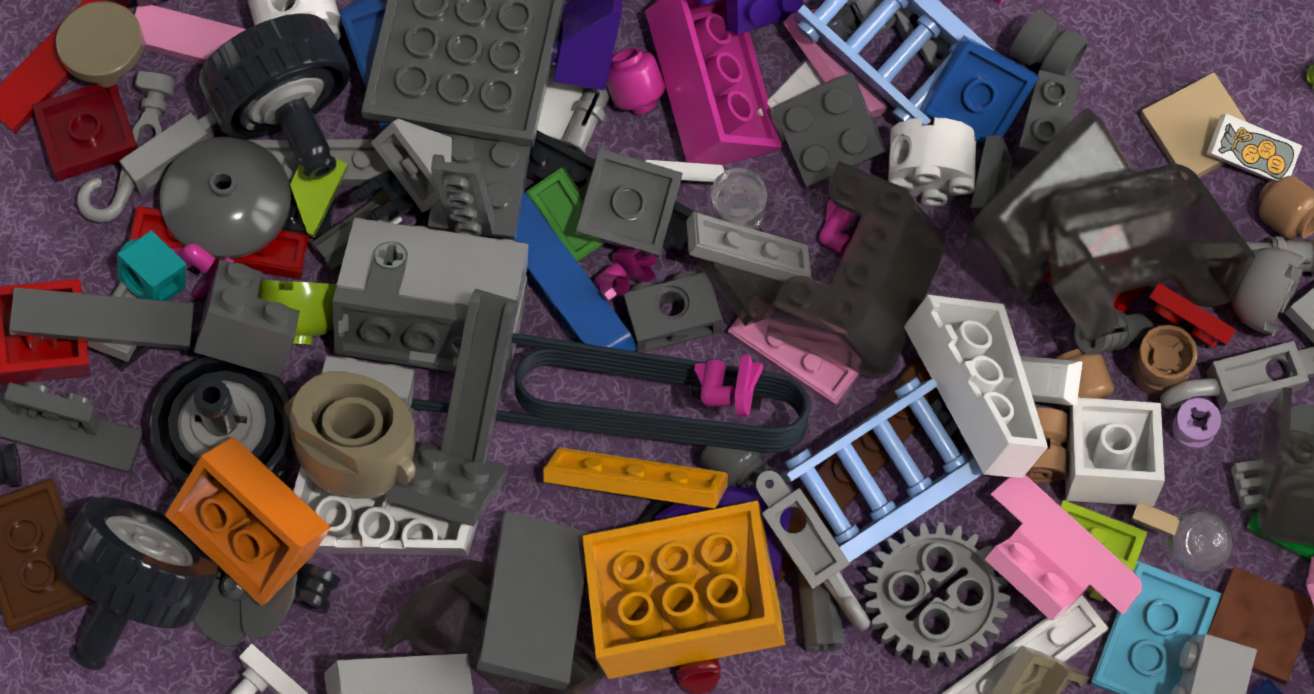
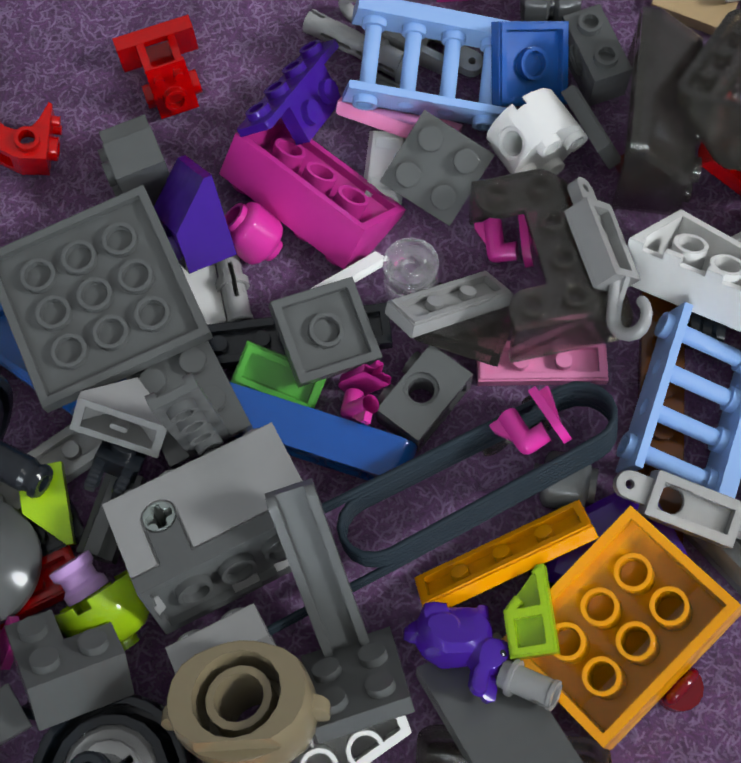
camera: 30 degrees left, 0 degrees up
(298, 263) = (78, 578): none -> lavender wheel
(552, 511) = (460, 639): none -> dark purple animal
(572, 568) = (528, 684): none -> light grey pin
(617, 533) = (531, 619): none -> lime tile
(897, 294) = (606, 257): none -> light grey piece

